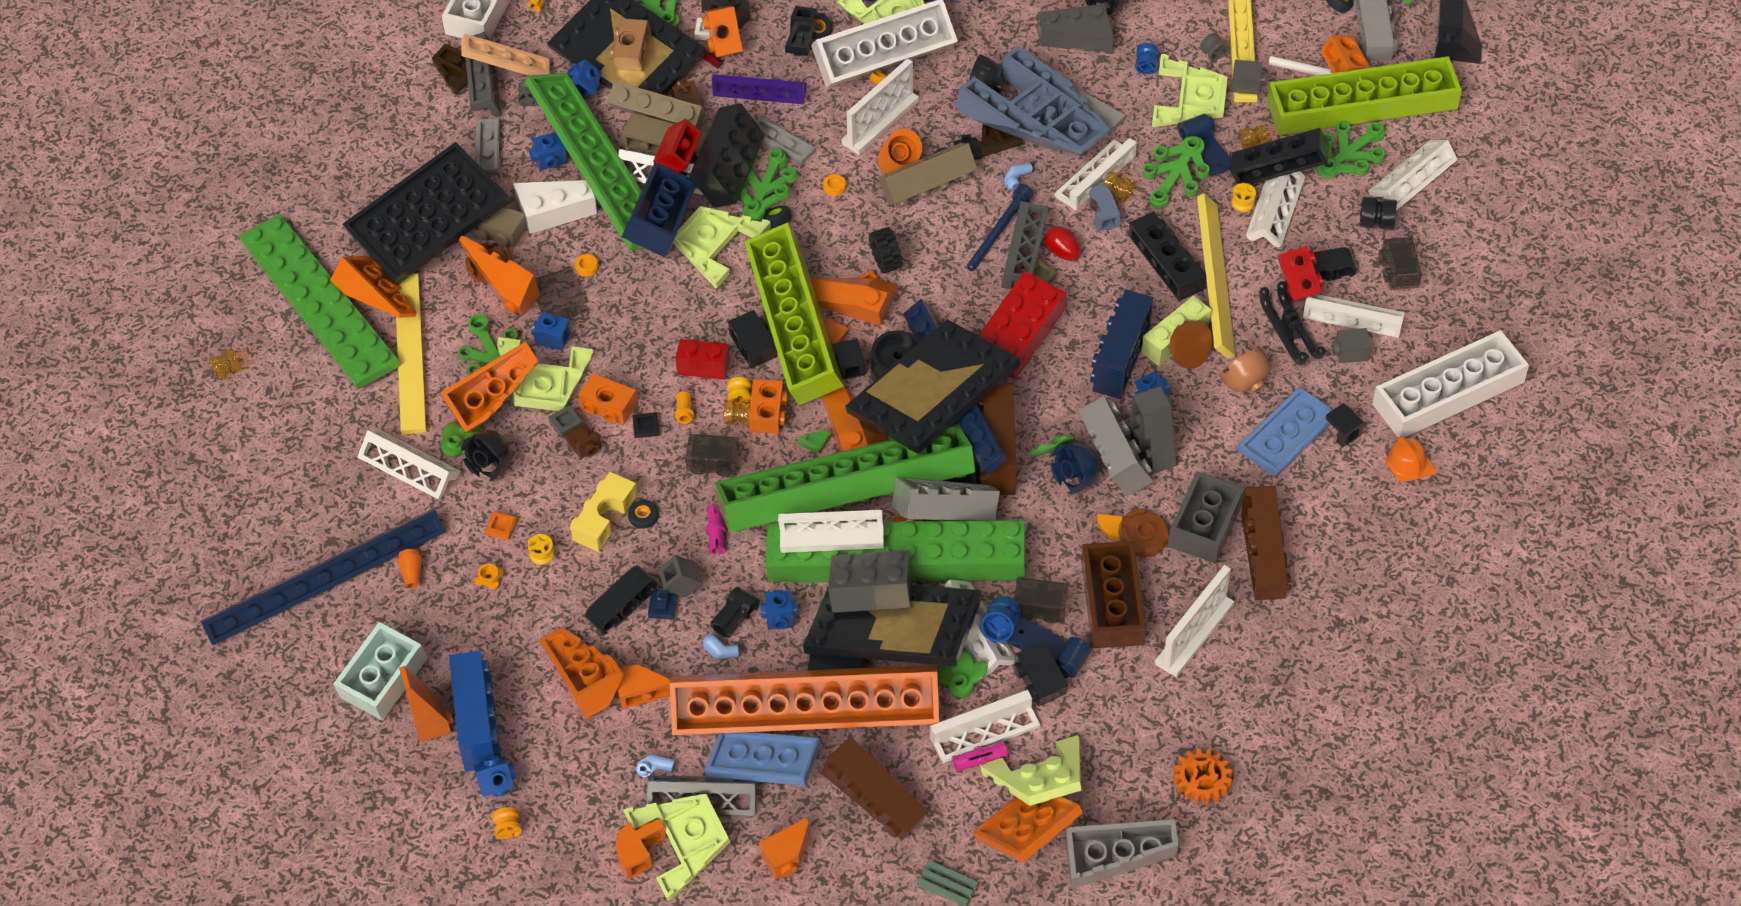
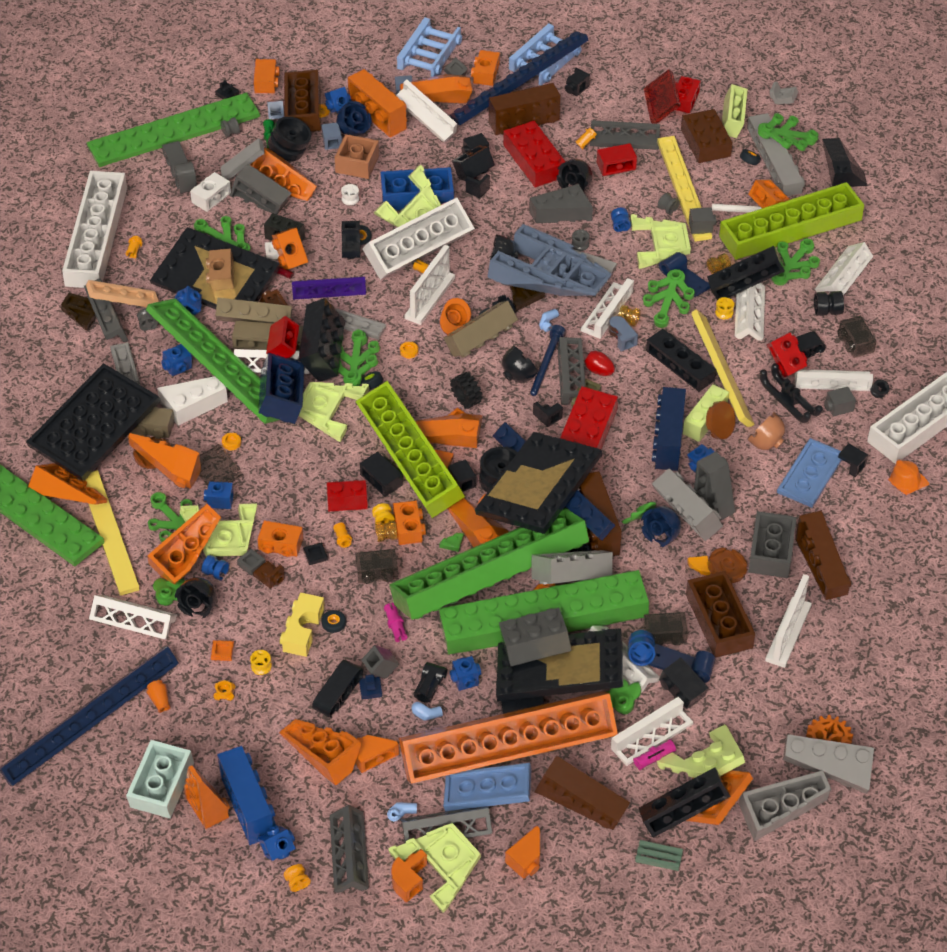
camera: 15 degrees left, 5 degrees down
(518, 418) = (213, 567): none -> blue wheel
(582, 799) = (353, 846): none -> dark grey fence
(831, 534) = (493, 607): white fence -> none
(958, 230) = (517, 366): none -> black cylinder
(980, 297) = (547, 414): none -> black panel
(991, 825) = (684, 802): none -> black brick
(1088, 77) = (580, 240): none -> dark grey wheel
(1194, 808) = (840, 761): none -> light grey wedge
(1414, 331) = (884, 388): none -> black bush

